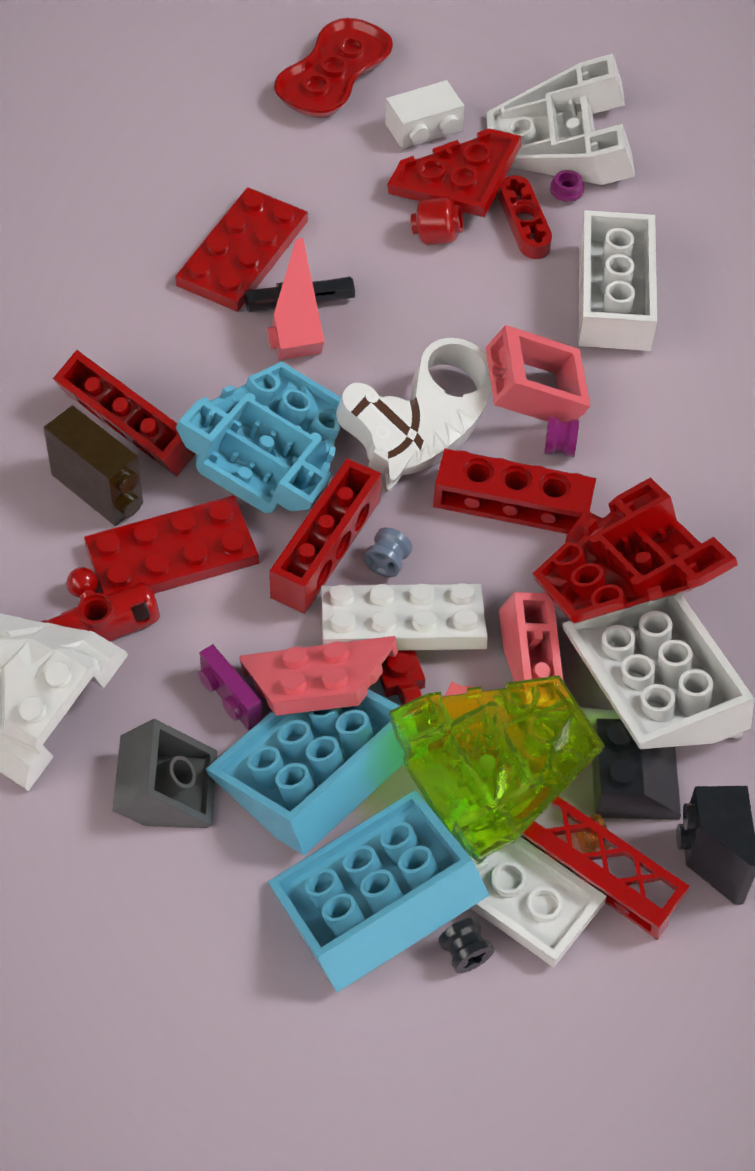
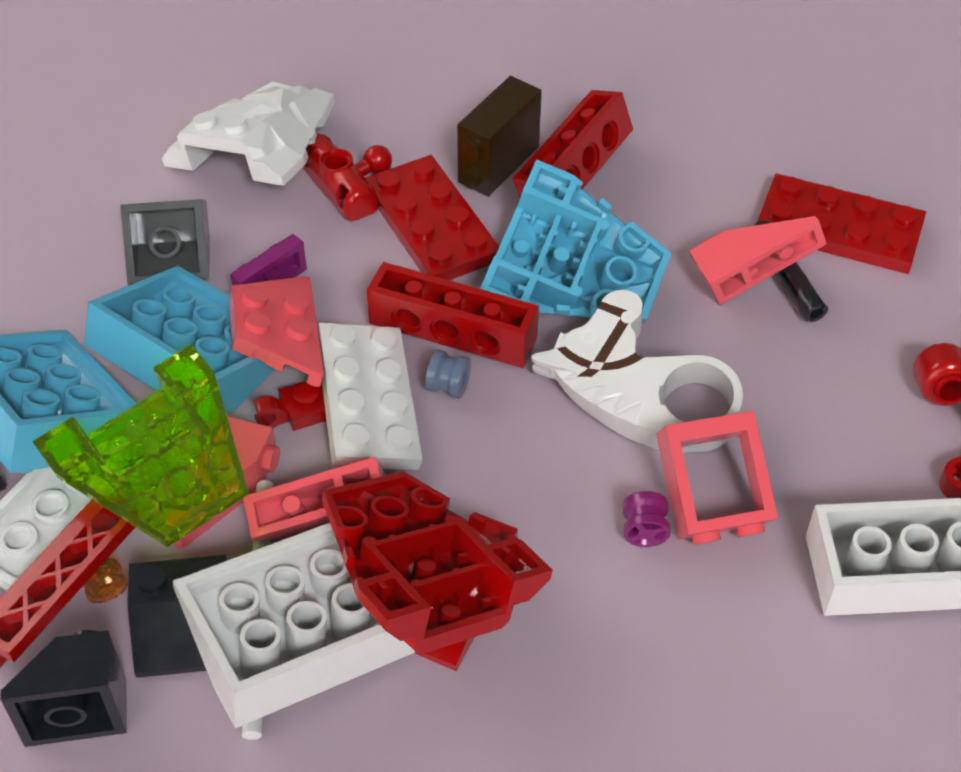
camera: 85 degrees right, 5 degrees down
(511, 491) = (555, 452): red brick -> none

